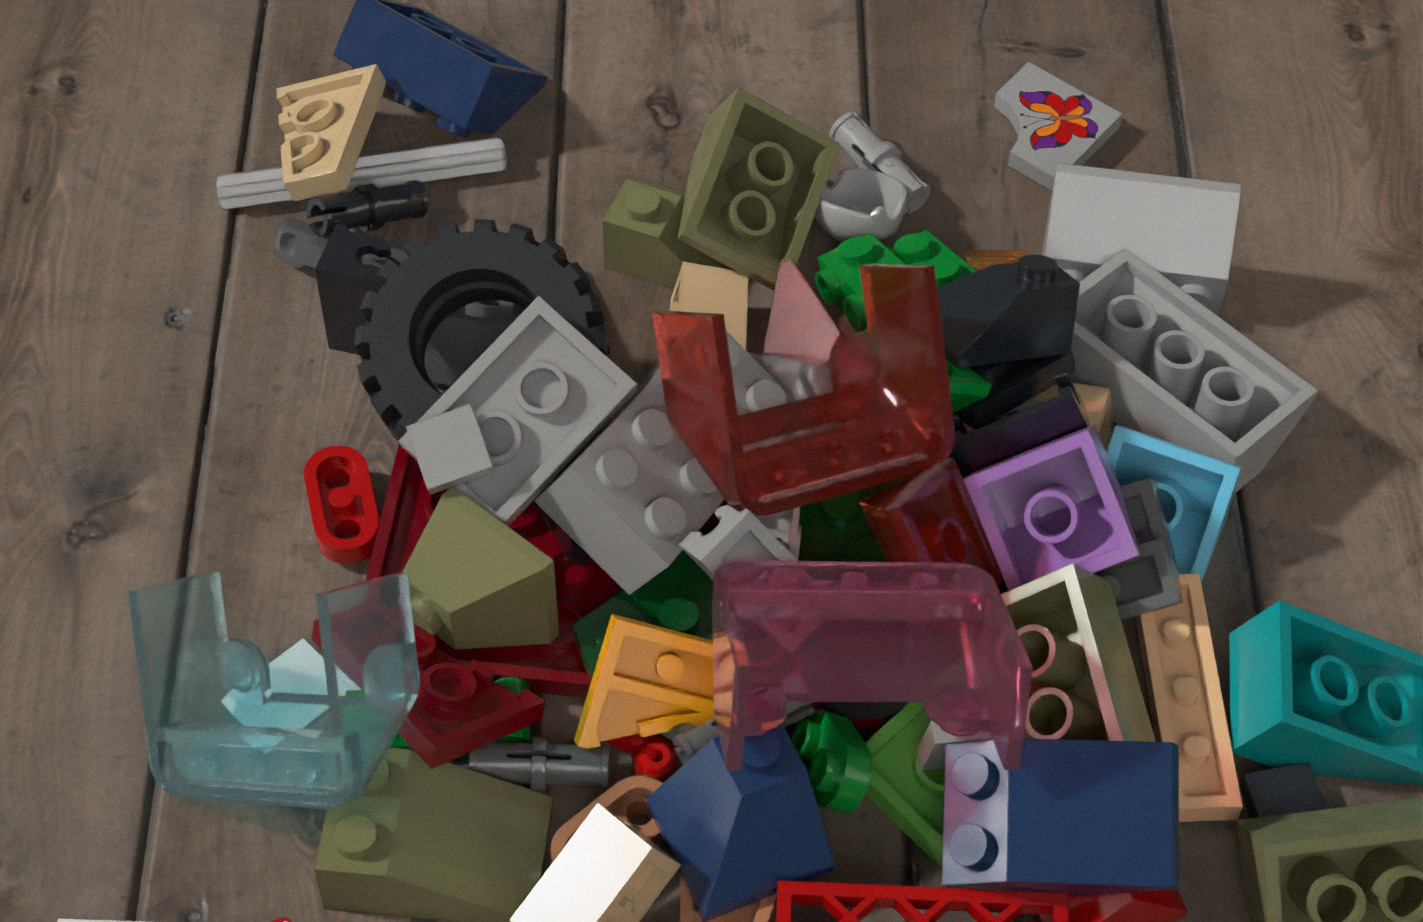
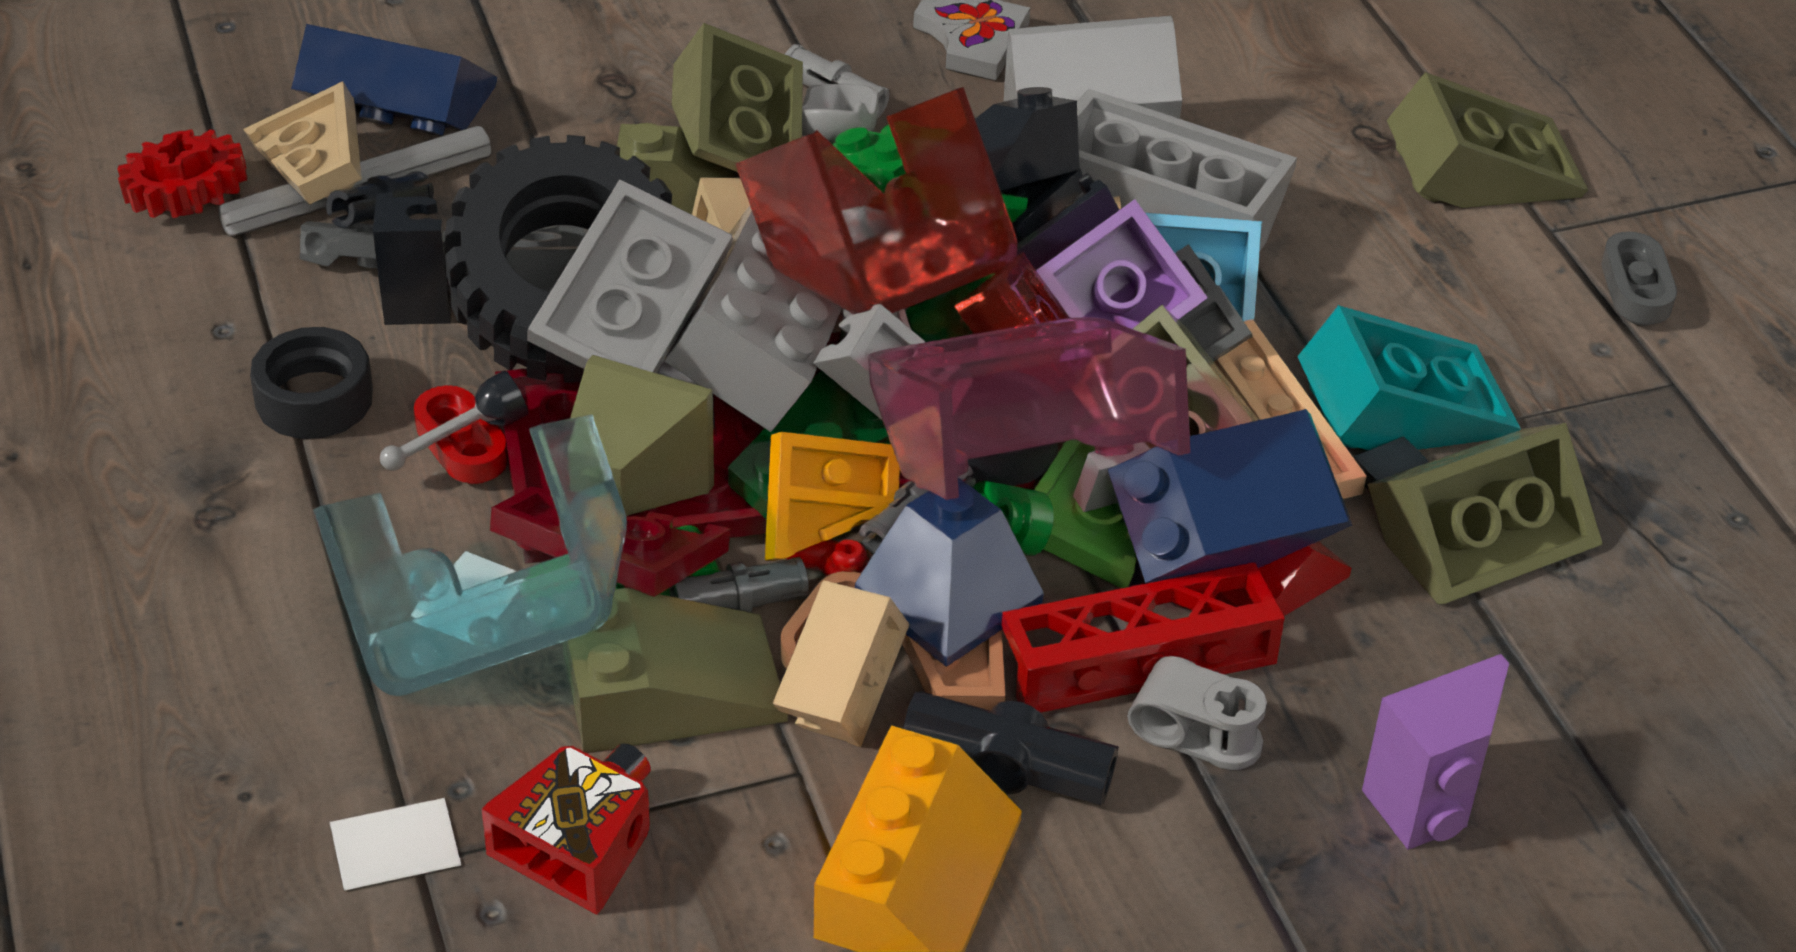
camera: 20 degrees left, 10 degrees down
(195, 131) = (182, 173): none -> red gear
(218, 370) = (319, 412): none -> black tyre
(377, 486) = (496, 402): none -> hinge
(450, 449) = (582, 321): light grey tile -> none

